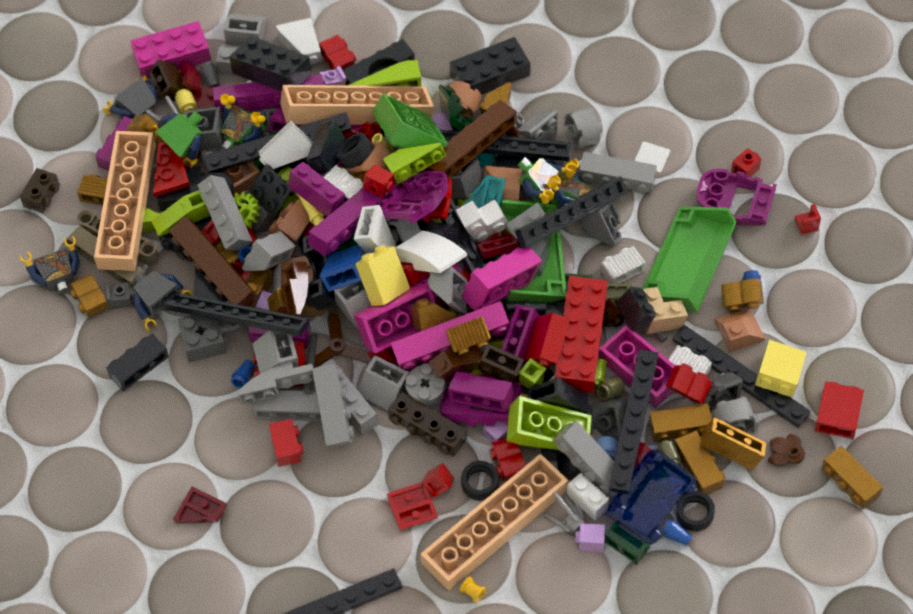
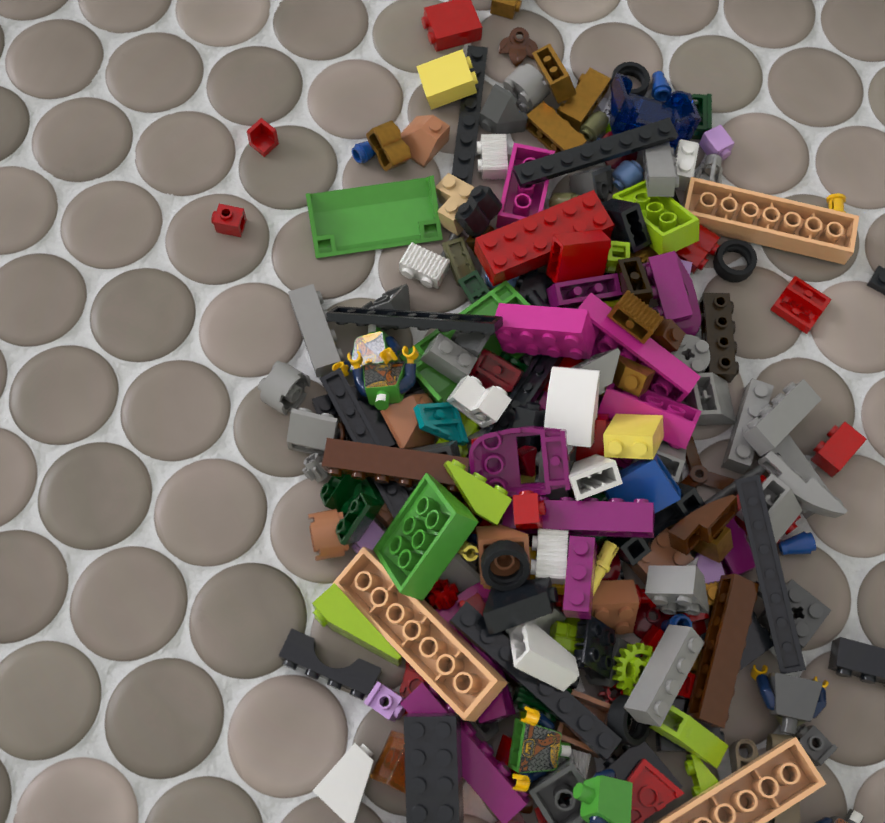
camera: 130 degrees left, 10 degrees up
(89, 296) = (842, 775): pearl gold brick -> none
(336, 54) = (341, 725): red brick -> none
(438, 480) = (762, 295): red panel -> none
(492, 66) = (258, 535): black brick -> none
(501, 93) = (299, 499): pearl gold slope -> none
(653, 155) = (269, 316): white sticker -> none
(688, 383) = (523, 130): red brick -> none
(718, 189) = (279, 230): magenta slope -> none

